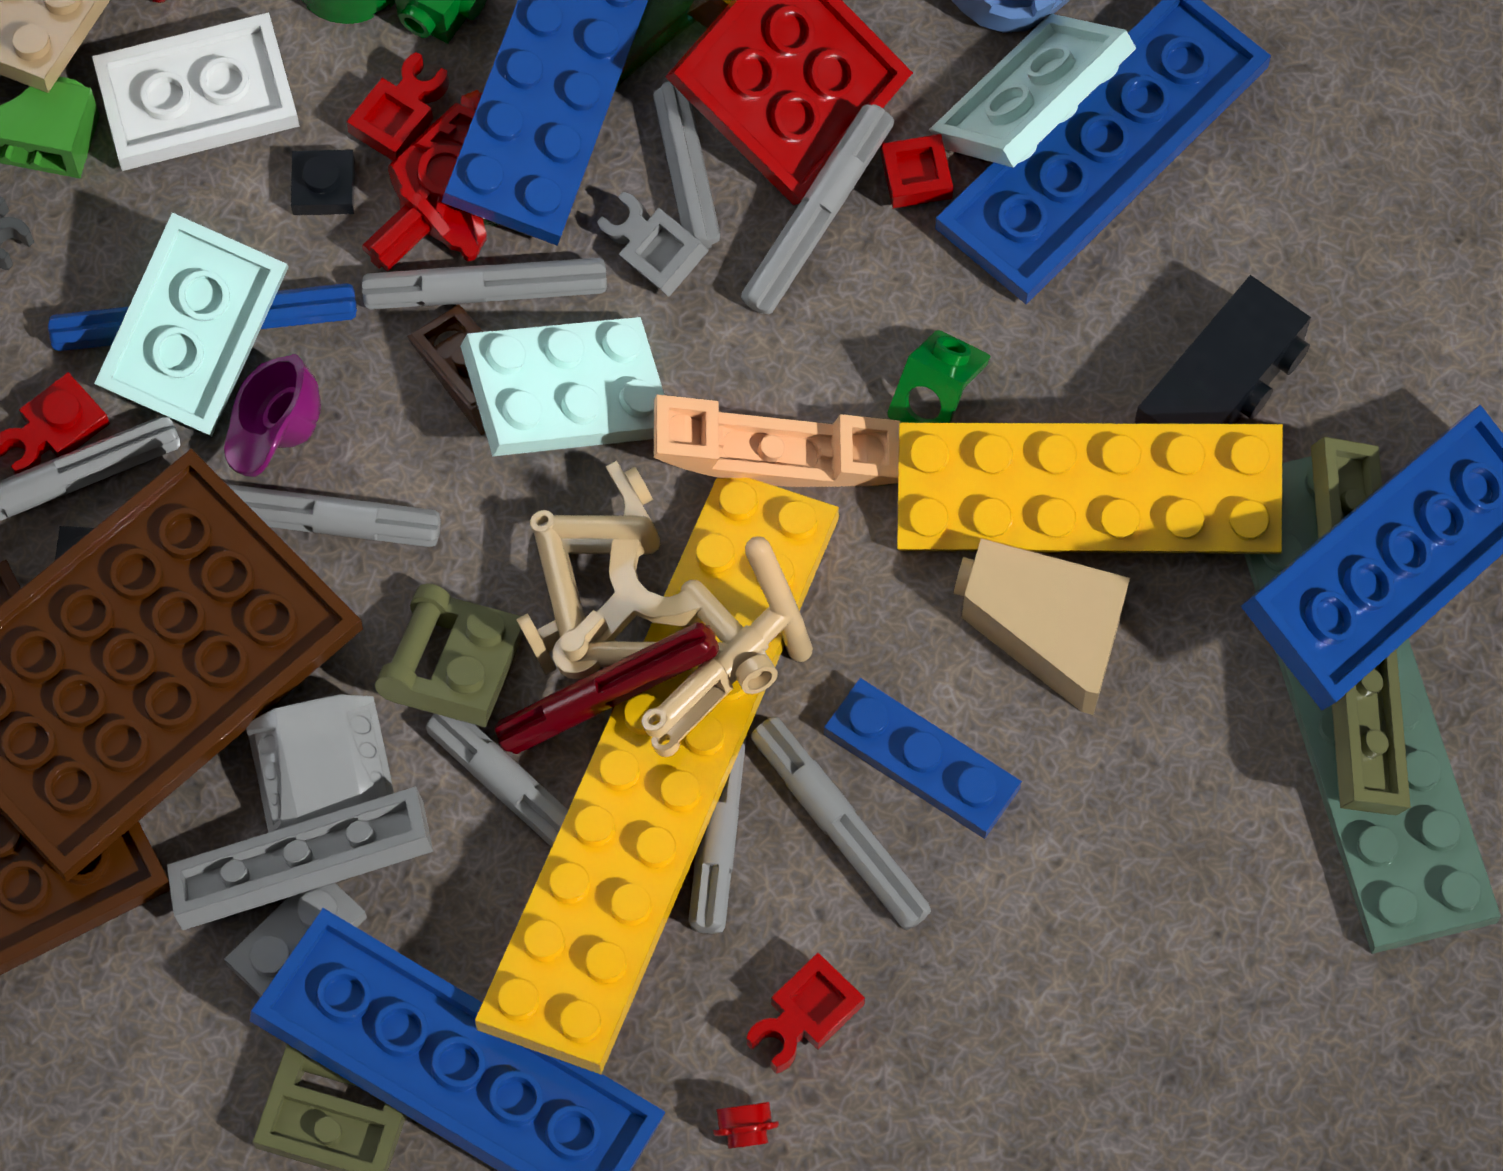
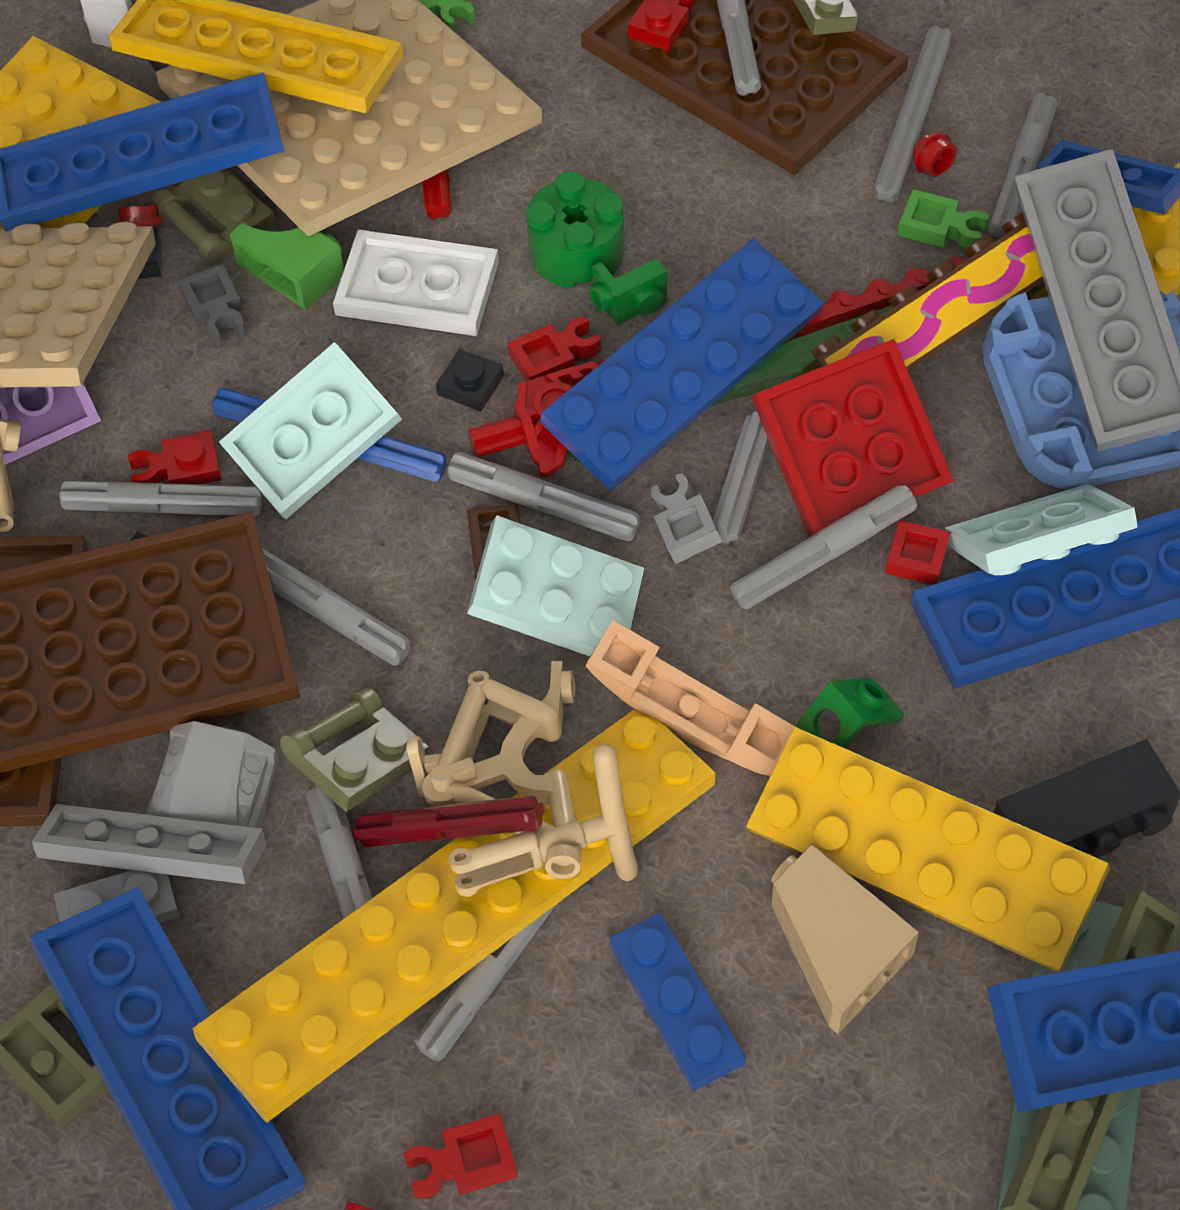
camera: 30 degrees right, 10 degrees down
(271, 411) = (334, 518): magenta piece -> none
(840, 822) = (581, 1022): light grey axle -> none

